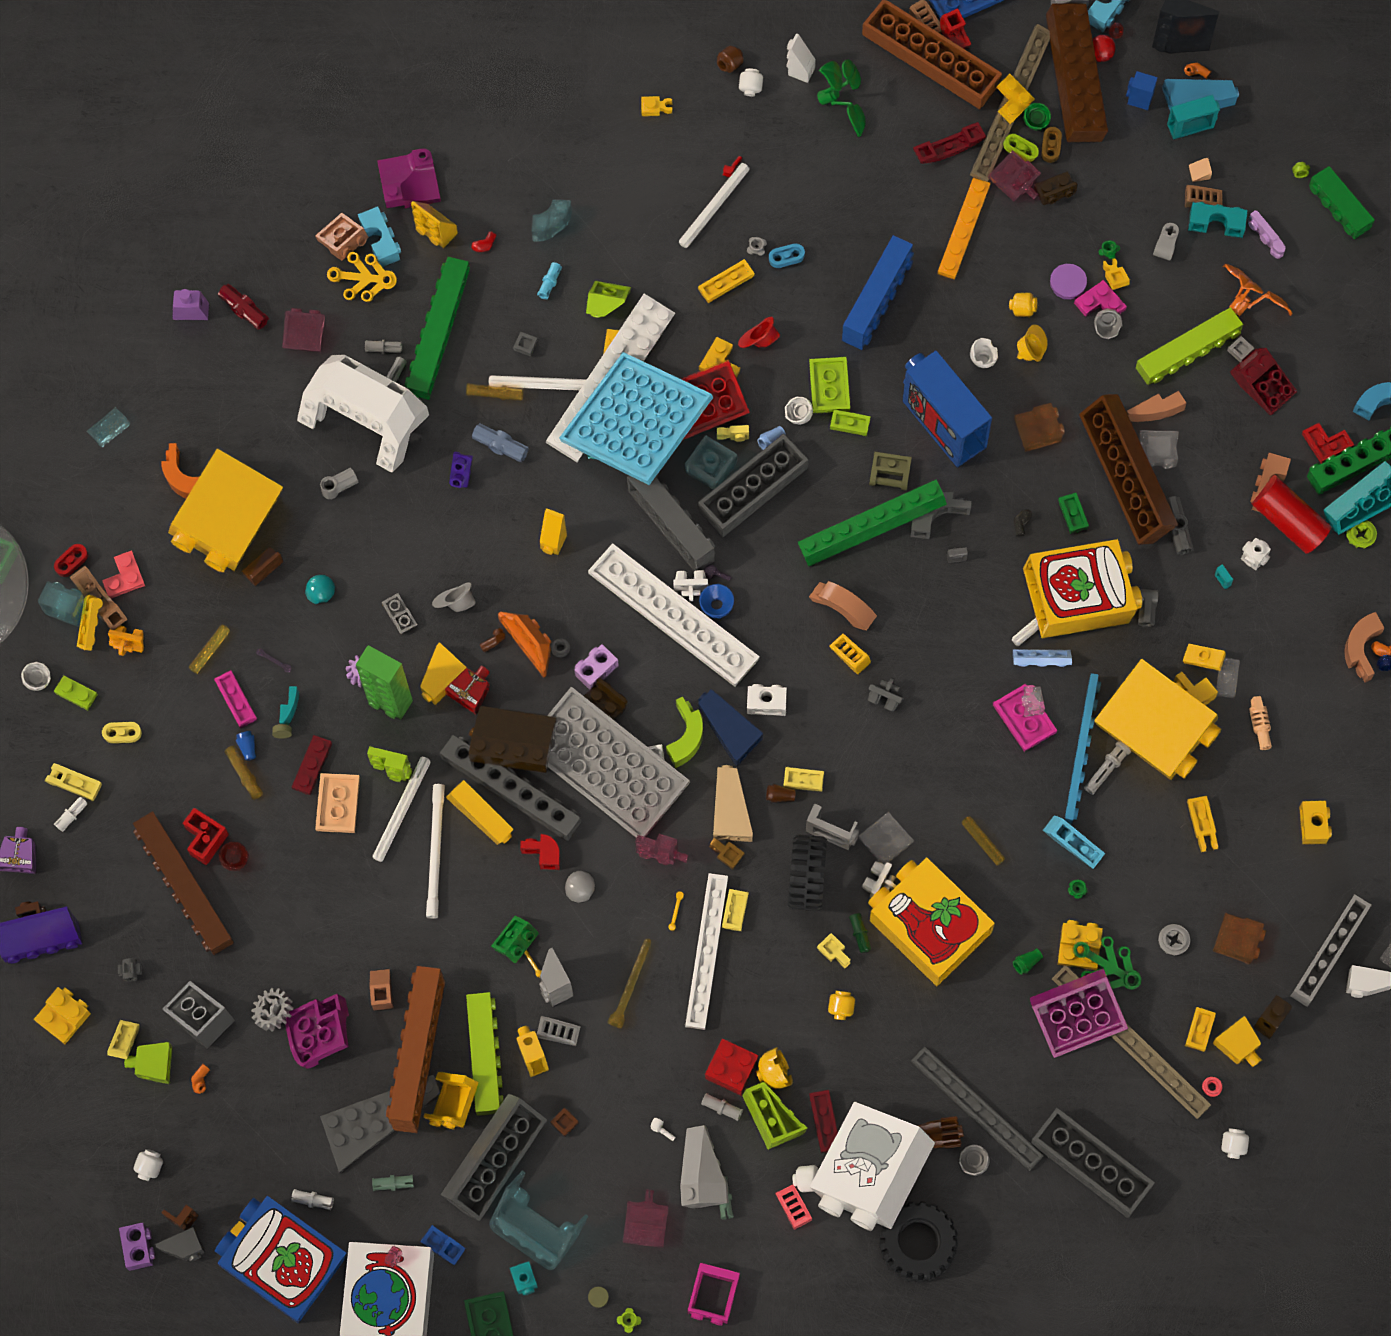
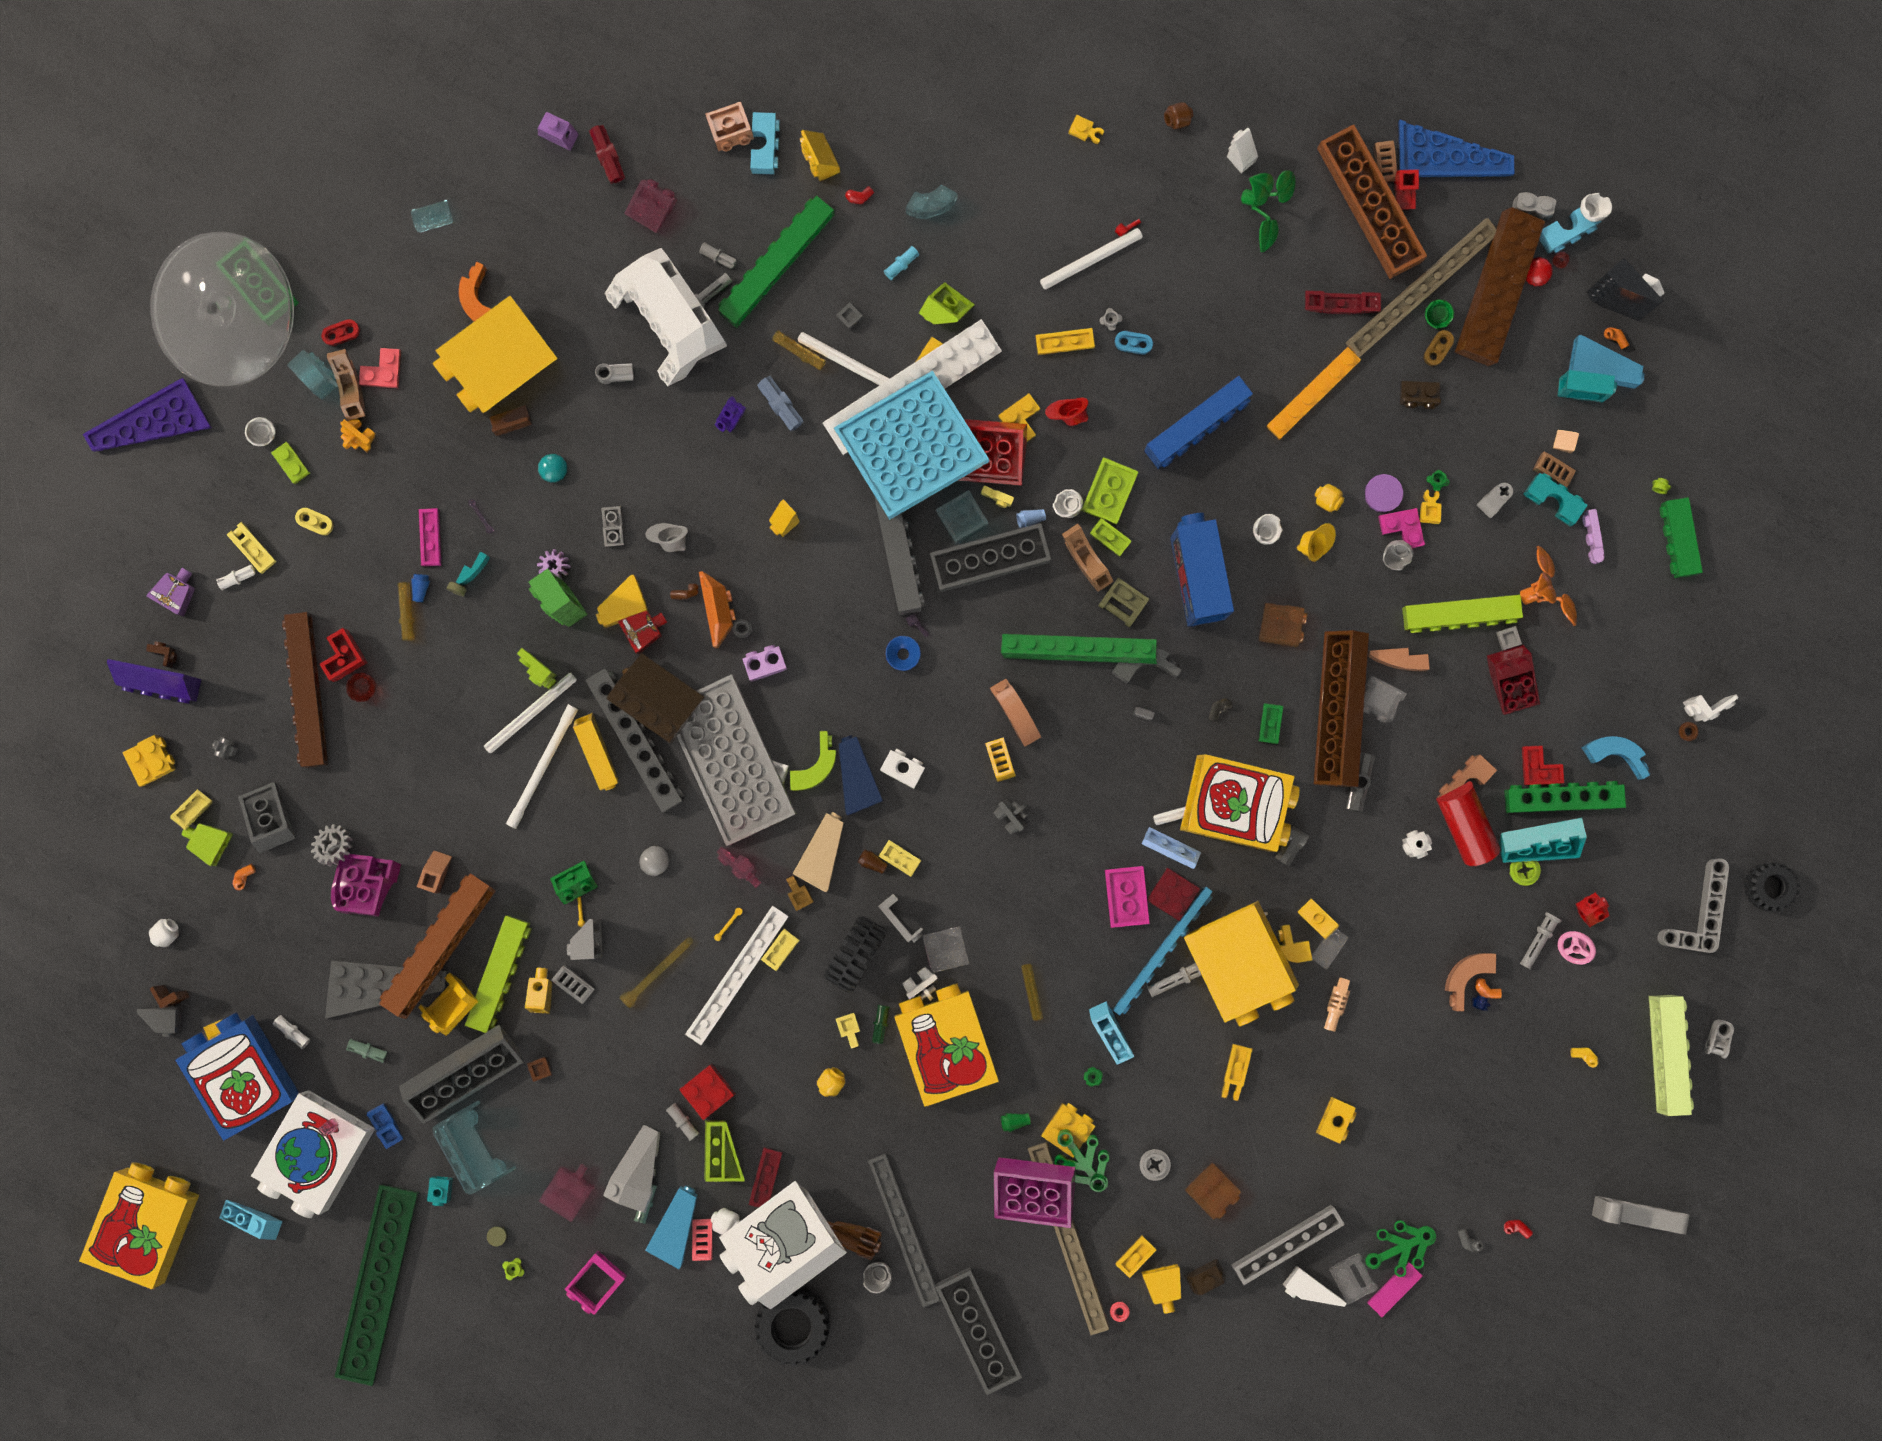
camera: 25 degrees right, 15 degrees up
(88, 622) = (328, 403): yellow plate -> none
(131, 1248) = (117, 998): medium lavender brick -> none
(209, 649) = (427, 478): clear yellow axle -> none
(312, 765) = (469, 633): dark red plate -> none
(337, 803) = (475, 680): light nougat plate -> none
(364, 277) = (731, 179): yellow plant -> none
(409, 179) = (818, 97): magenta slope -> none
(547, 849) = (641, 814): red brick -> none
(607, 699) = (758, 699): dark brown bracket -> none
(656, 1126) = (618, 1109): white hand -> none
(673, 615) = (858, 646): white plate -> none
(690, 587) = (880, 620): white hips -> none
(750, 82) = (1186, 149): white head -> none
(763, 1210) = (673, 1232): none -> dark azure slope
(774, 1069) = (742, 1113): yellow cylinder -> none
(843, 452) = (1086, 558): none -> medium nougat arch
(1015, 177) = (1387, 365): clear pink plate -> none
(1017, 98) = (1430, 288): yellow plate -> none
(1021, 147) = (1408, 337): lime plate -> none
(1032, 701) = (1140, 887): clear brick -> none
(1065, 697) = (1173, 894): none -> dark red plate
(1141, 90) = (1551, 335): blue brick -> none
(1223, 576) = (1375, 849): teal tile -> none
(1235, 1143) = (1112, 1372): white head -> none

